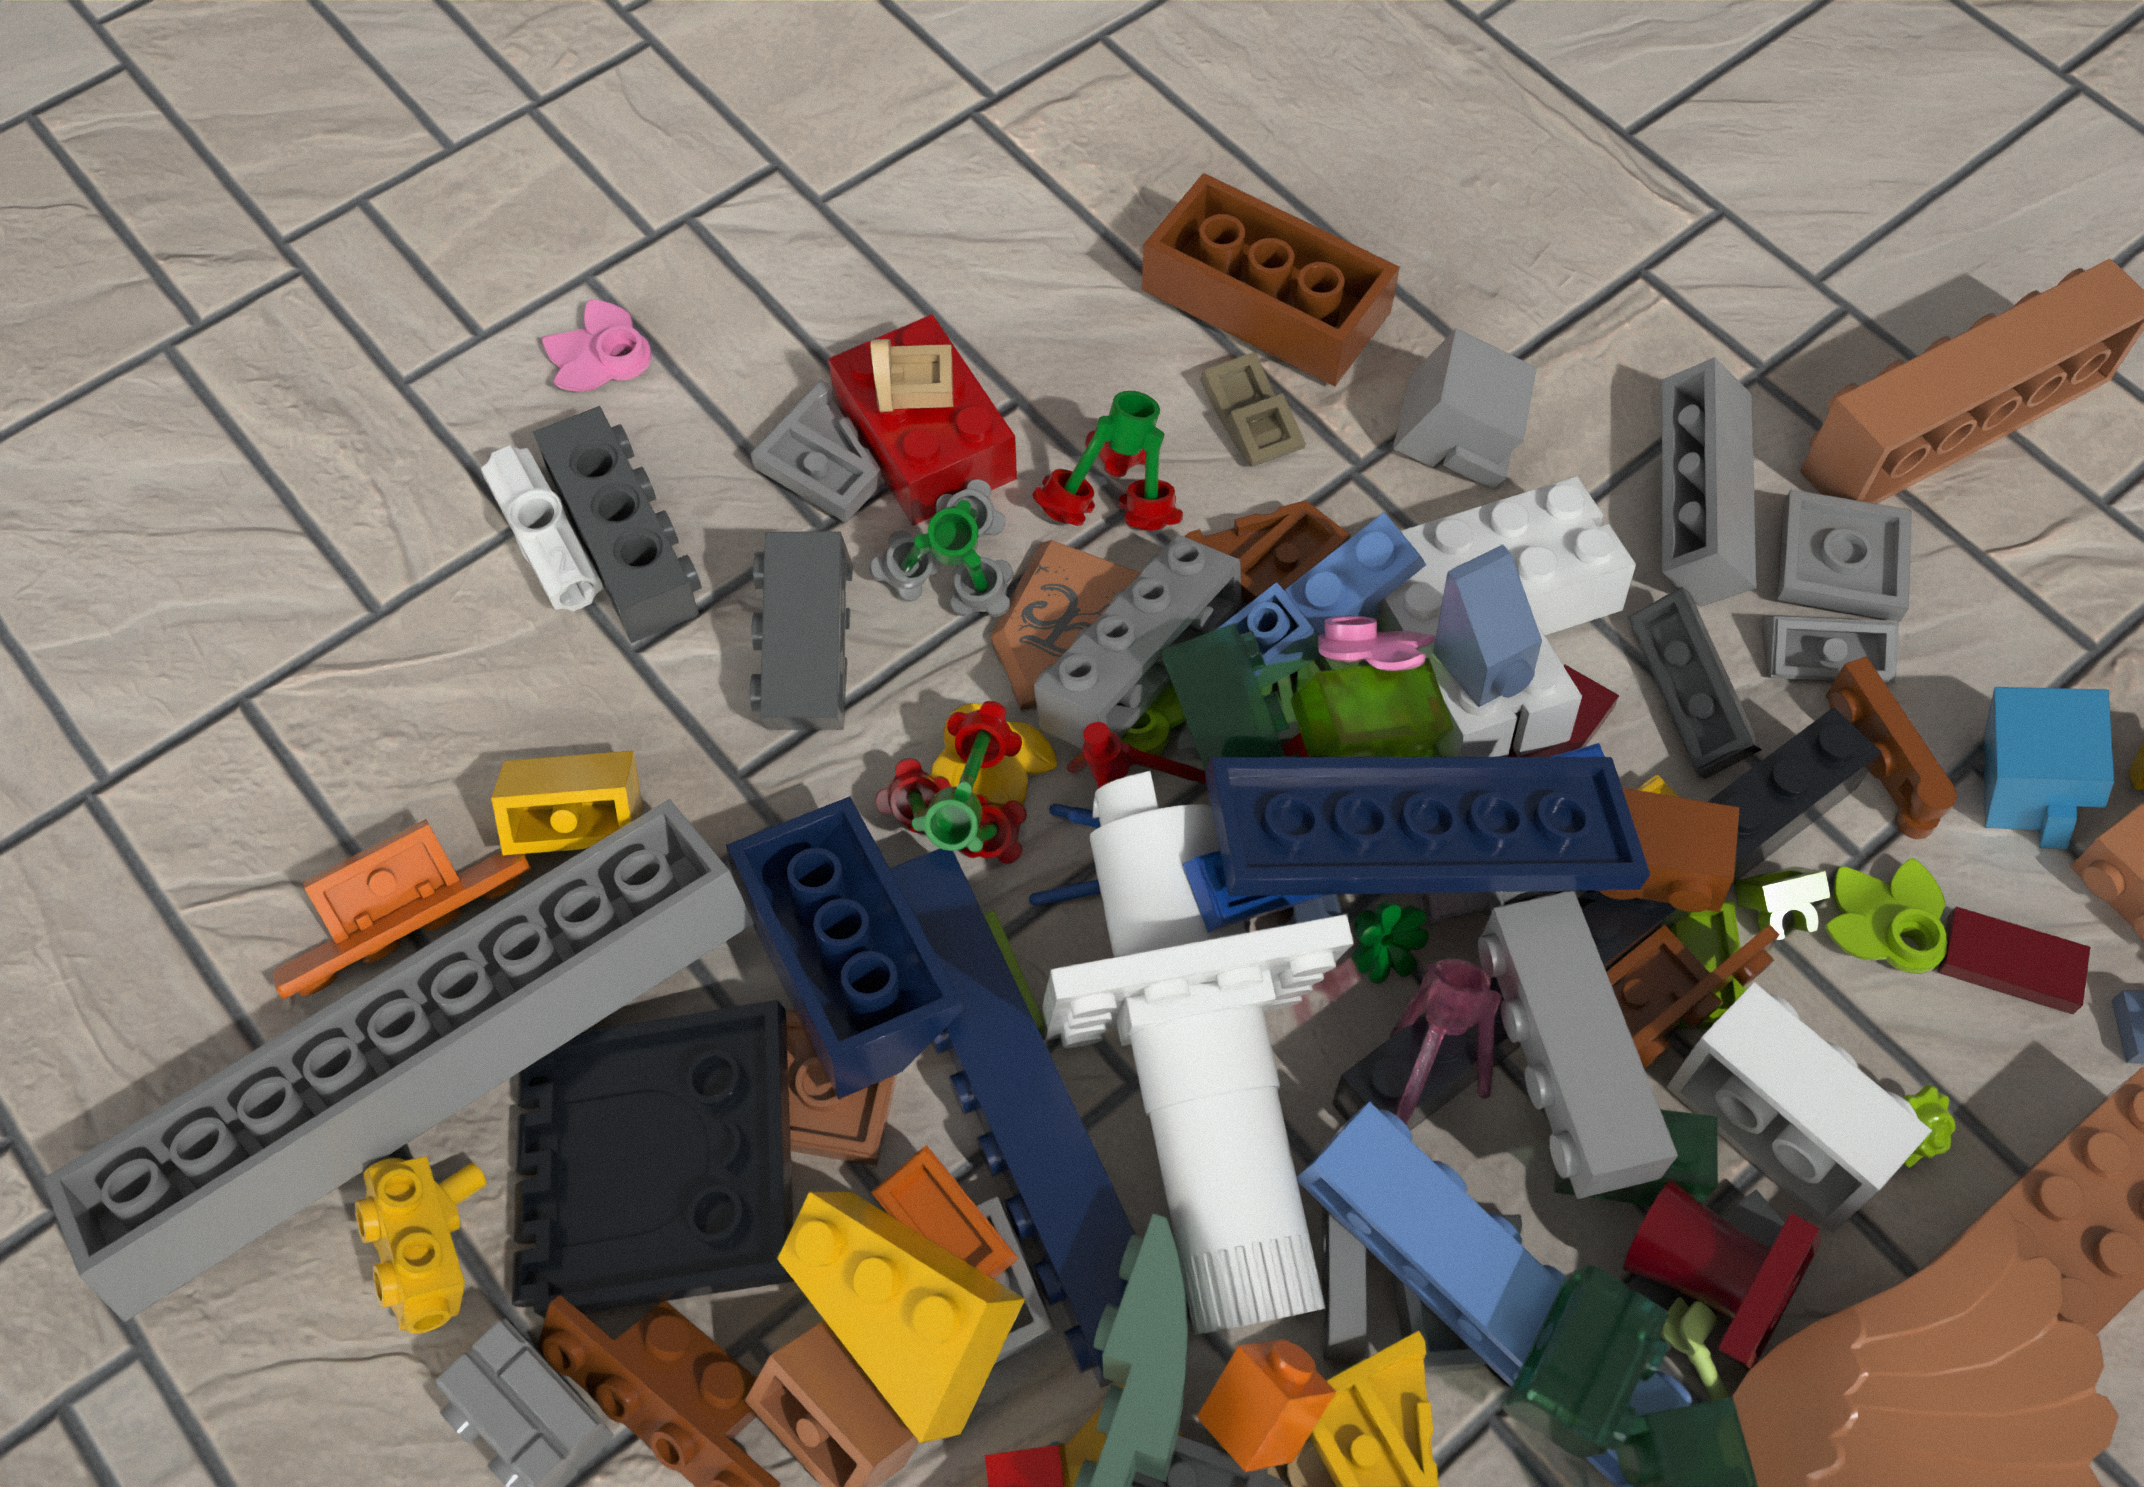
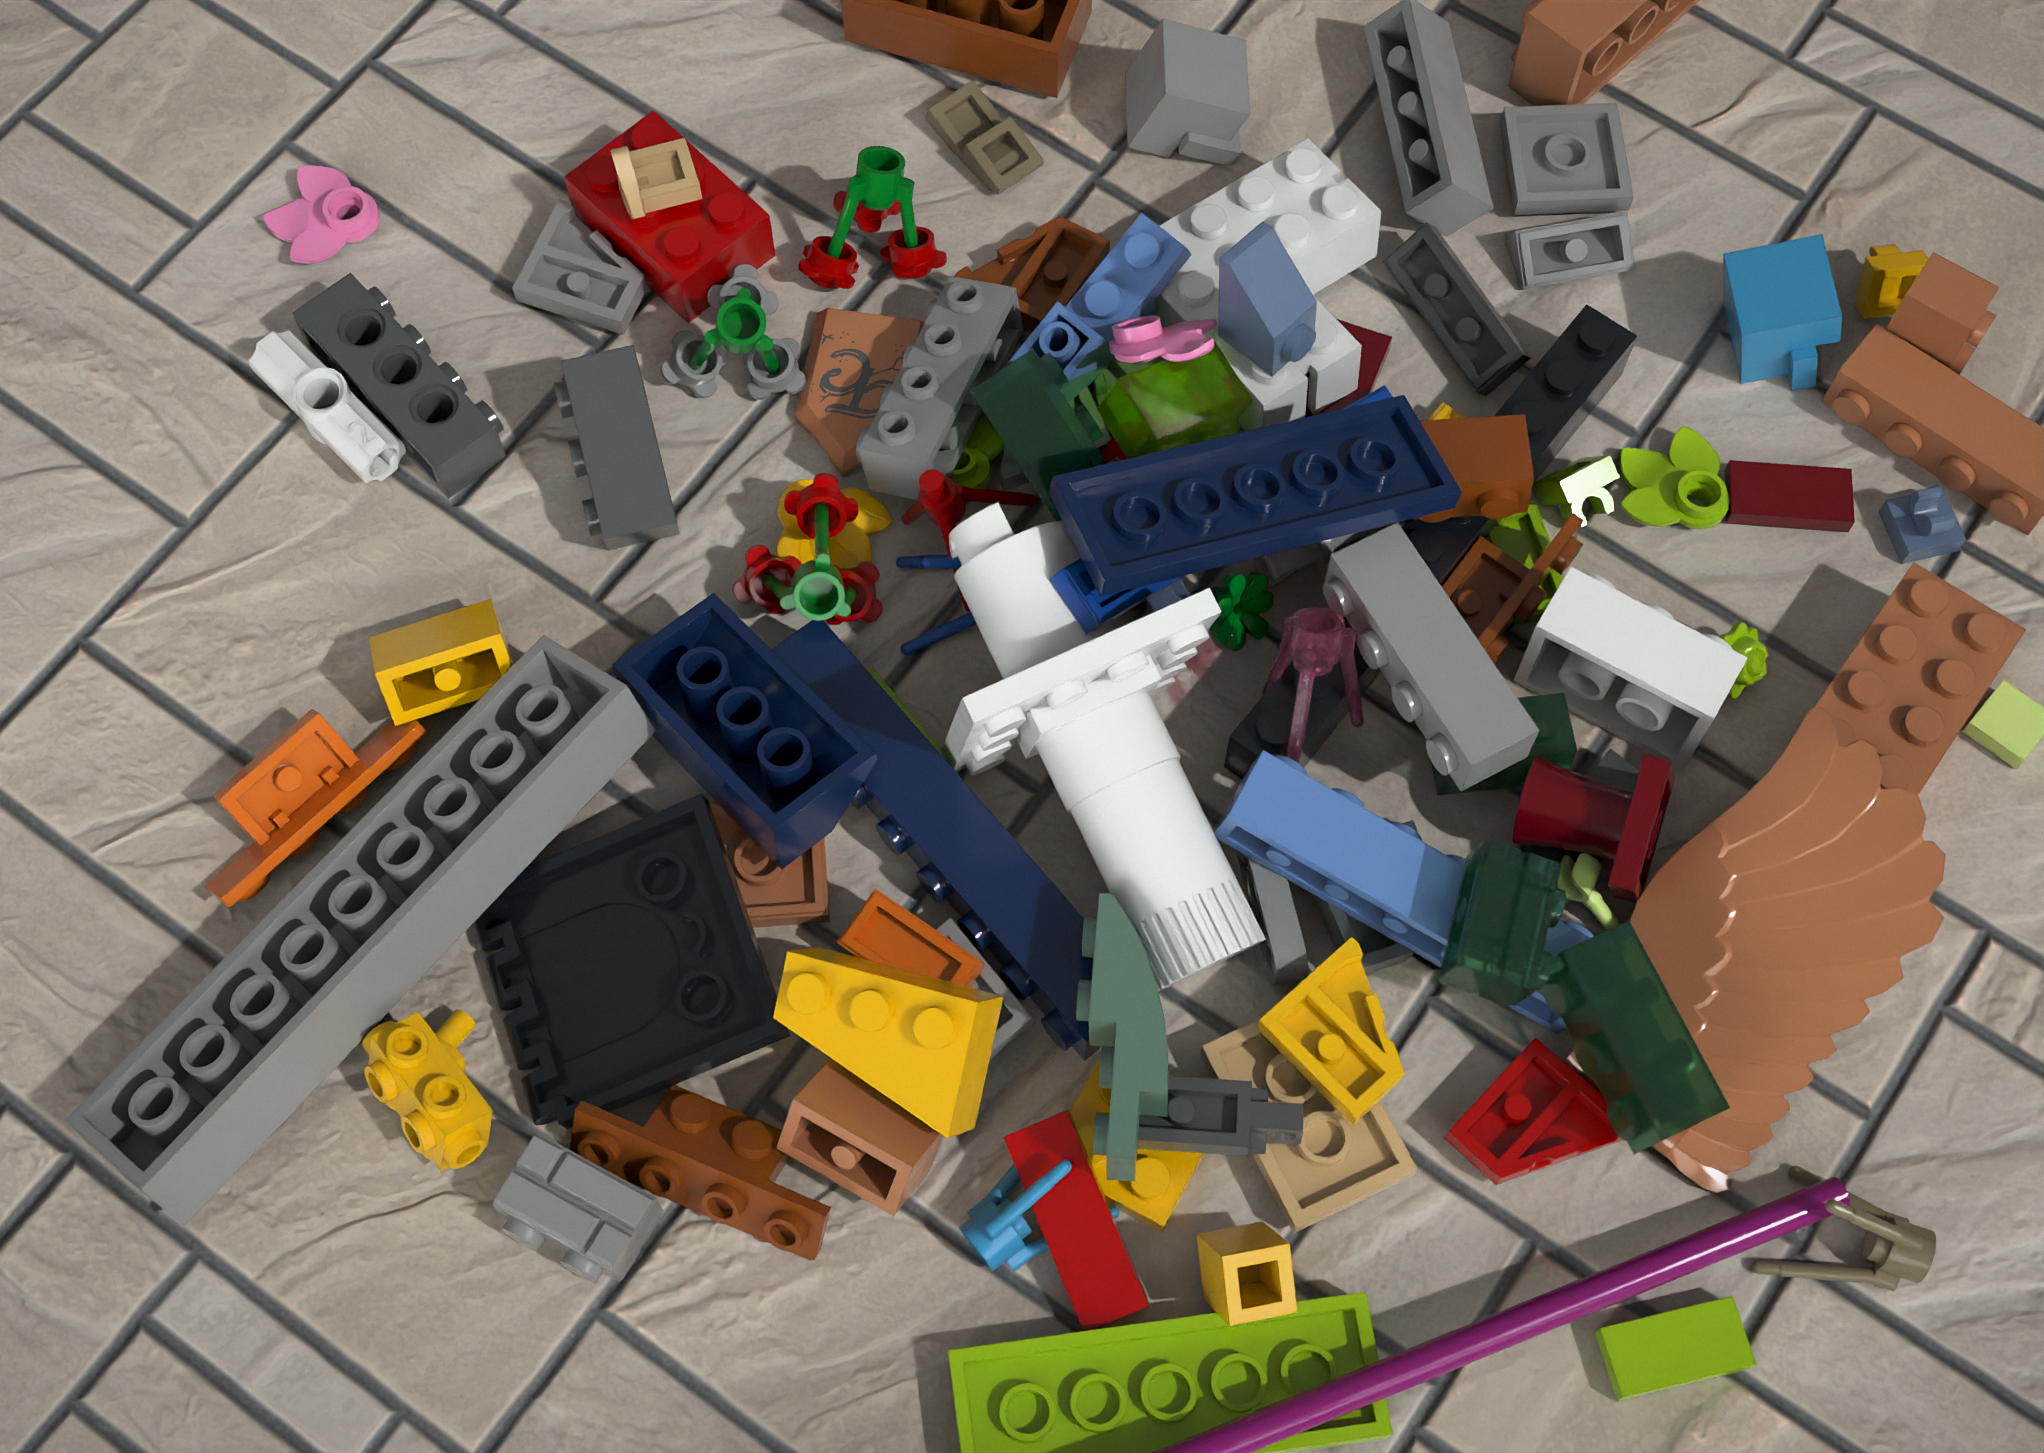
camera: 15 degrees left, 5 degrees up
(1266, 1404) = (1237, 1028): orange brick -> none
(1906, 762) = (1660, 340): dark orange plate -> none

